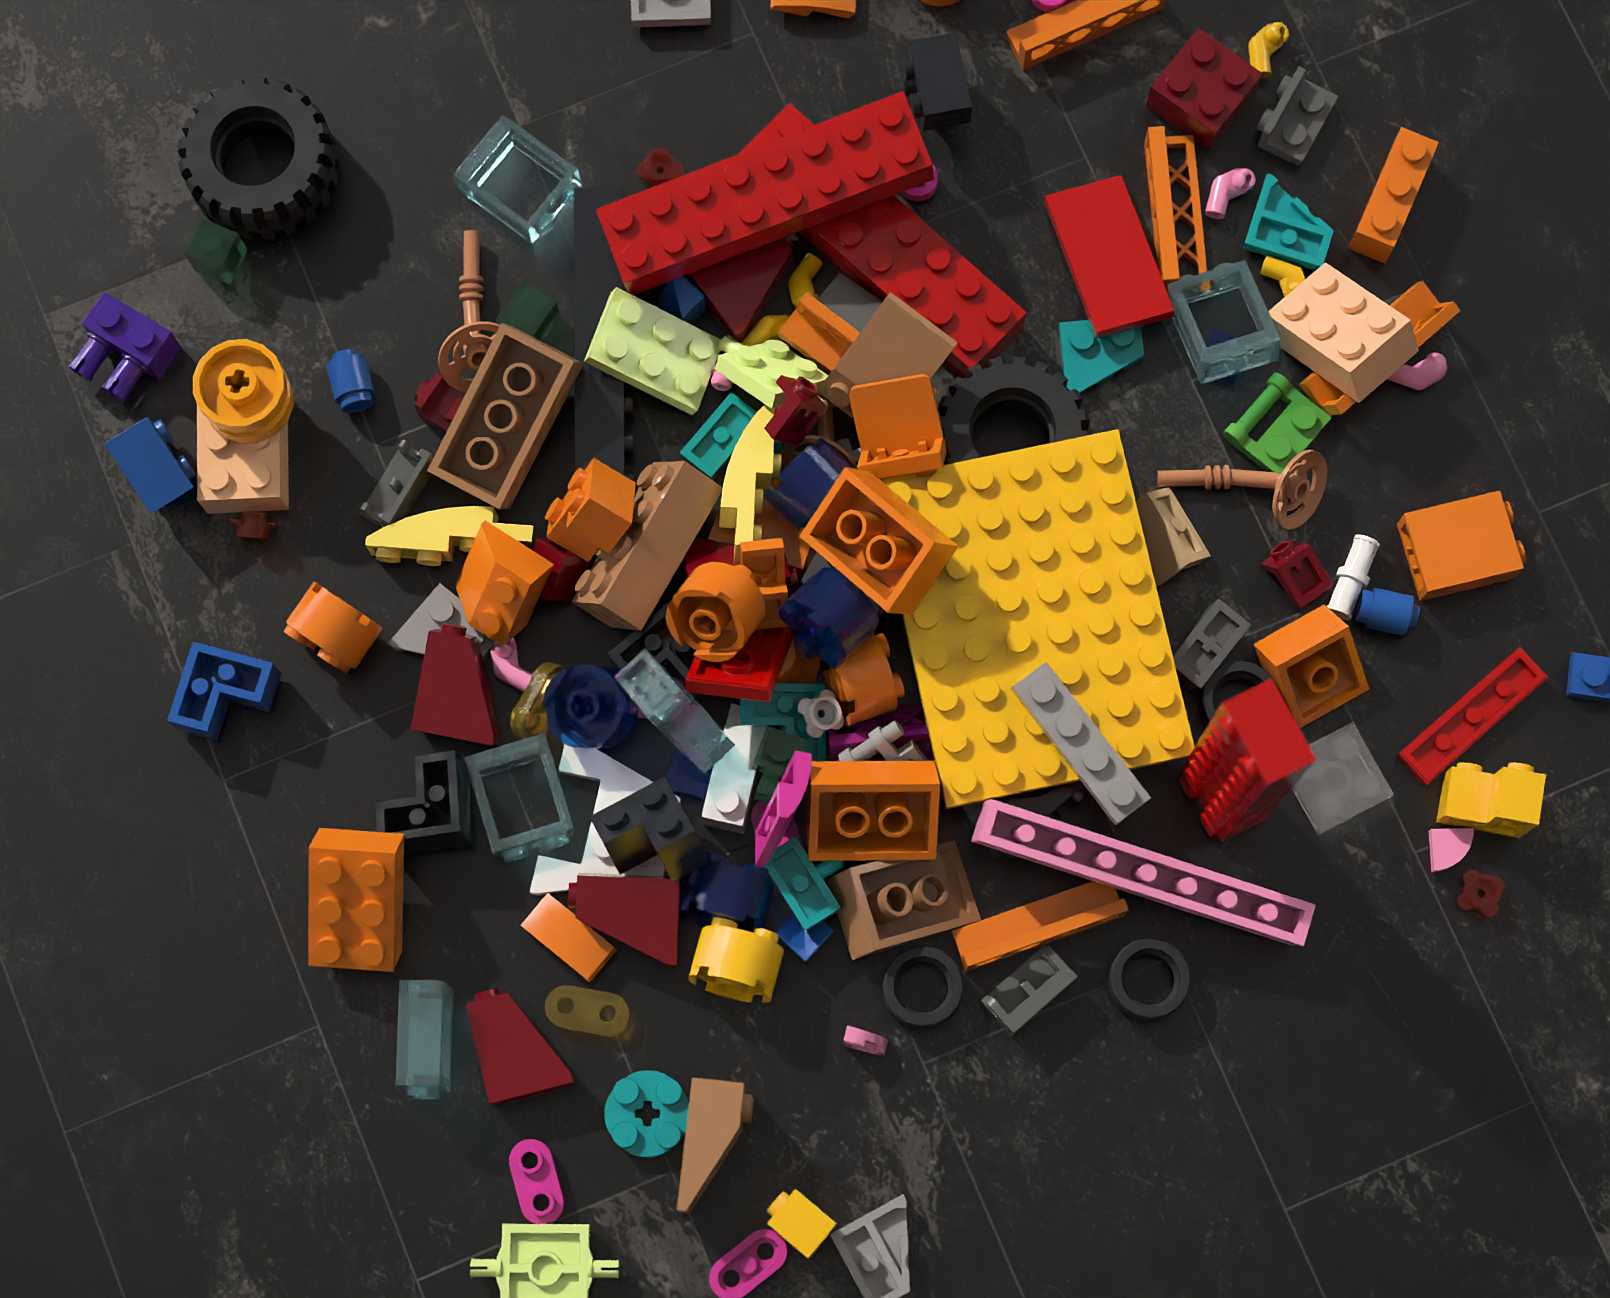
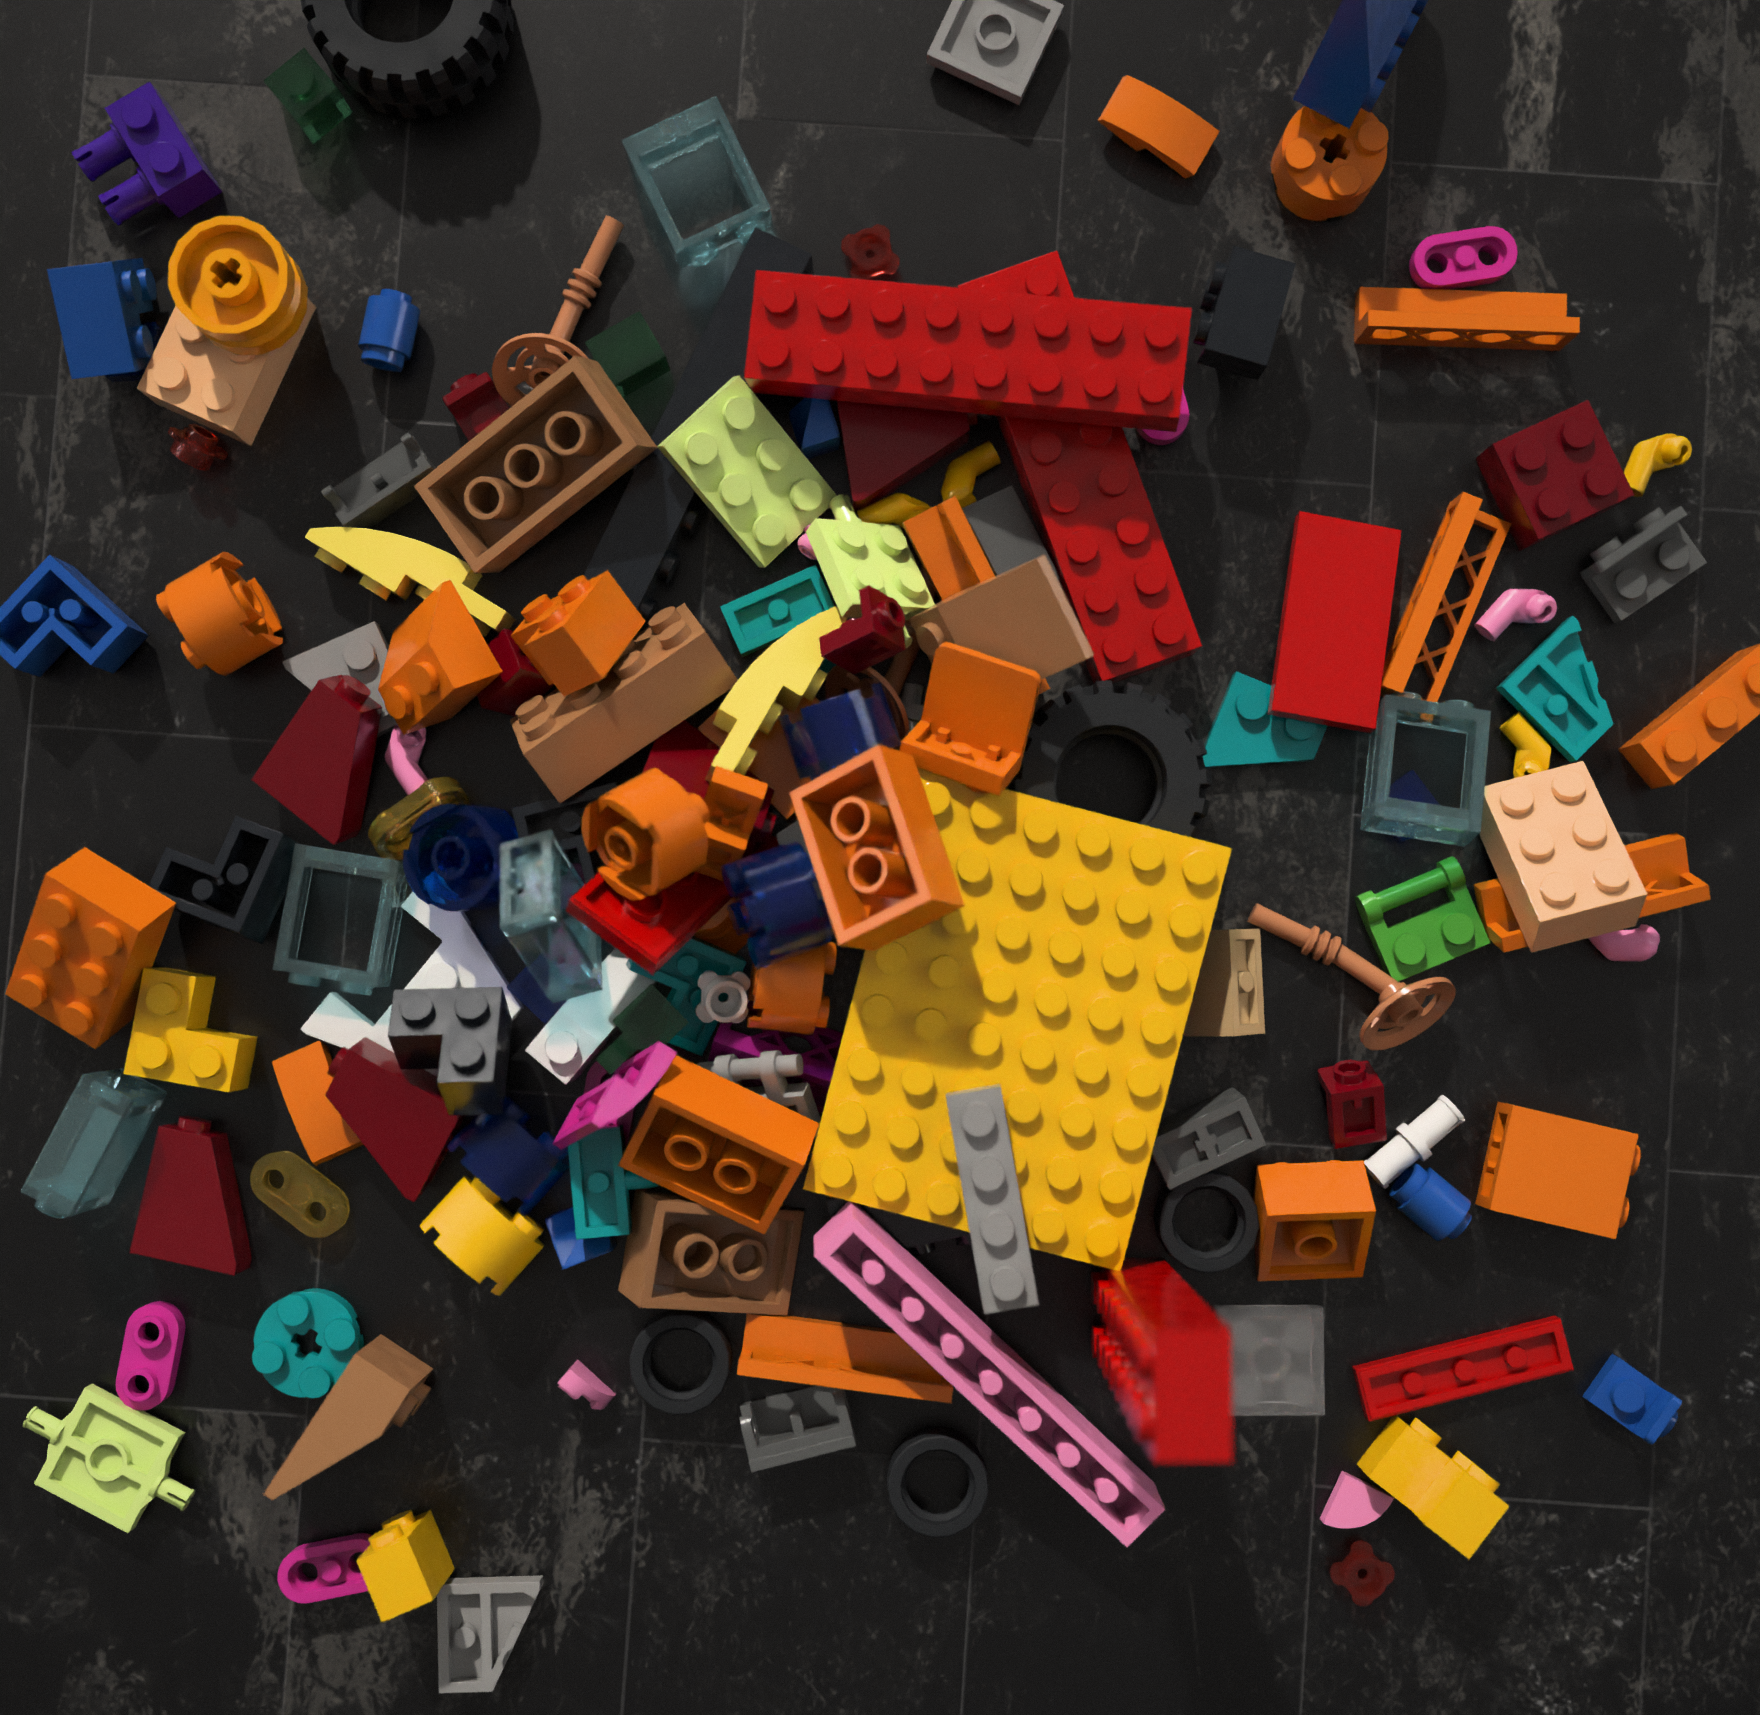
camera: 25 degrees right, 10 degrees up
(448, 945) = (173, 1038): none -> yellow brick

